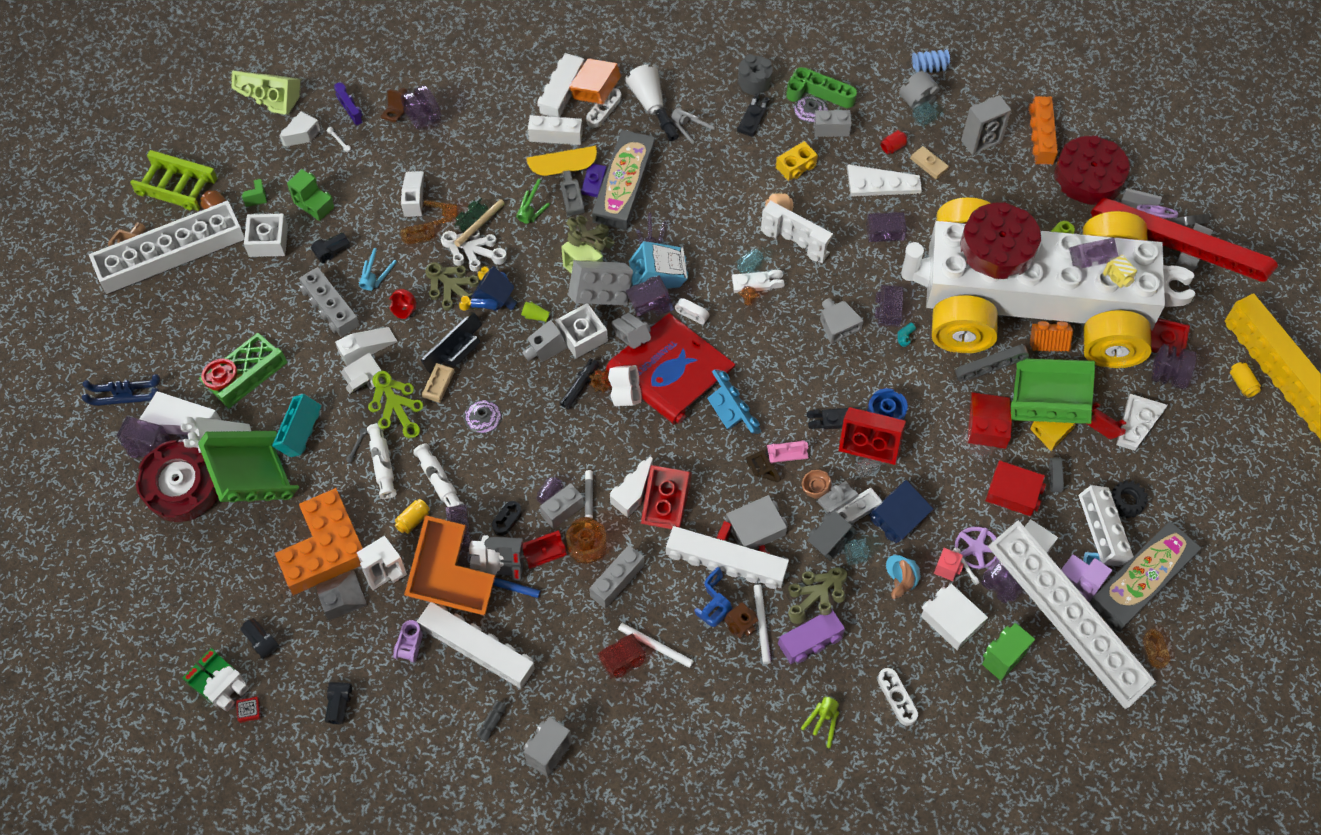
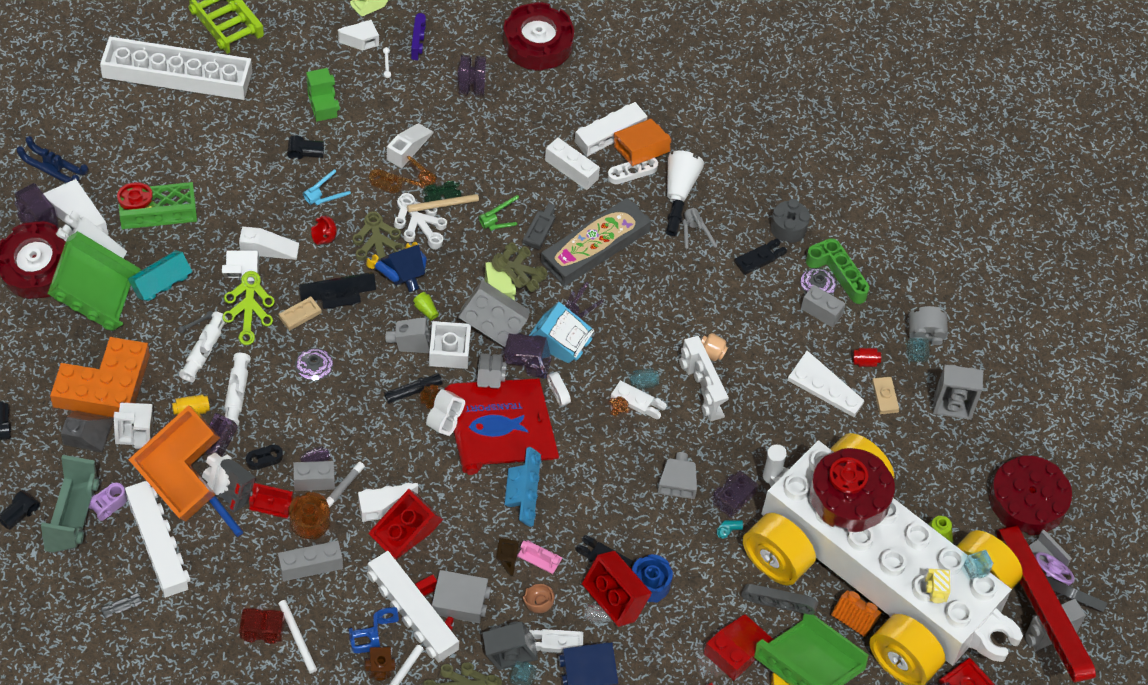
camera: 30 degrees right, 5 degrees down
(122, 235) = (150, 38): medium nougat bracket -> none
(211, 199) = (242, 49): dark orange head -> none
(255, 196) = (279, 68): bright green panel -> none
(265, 235) = (260, 106): white brick -> none
(329, 302) = (266, 192): light grey brick -> none
(385, 667) = (72, 505): none -> sand green windscreen
(394, 105) = (454, 60): reddish brown bracket -> none
(446, 47) = (538, 36): none -> dark red piece
(547, 746) = (143, 652): light grey brick -> none
(562, 161) = (555, 194): yellow brick -> none
(593, 180) = (569, 225): dark purple plate -> none
(796, 161) = (762, 317): yellow brick -> none
(837, 497) = (546, 620): light grey hips -> none
(886, 227) = (791, 425): clear purple brick -> none
(931, 60) = (964, 307): light blue piece -> none
(996, 229) = (848, 475): none -> red wheel
(1043, 130) = (1016, 432): orange brick -> none
(1096, 251) = (926, 552): clear purple brick -> none
(1134, 237) = (978, 564): none -> clear light blue plate

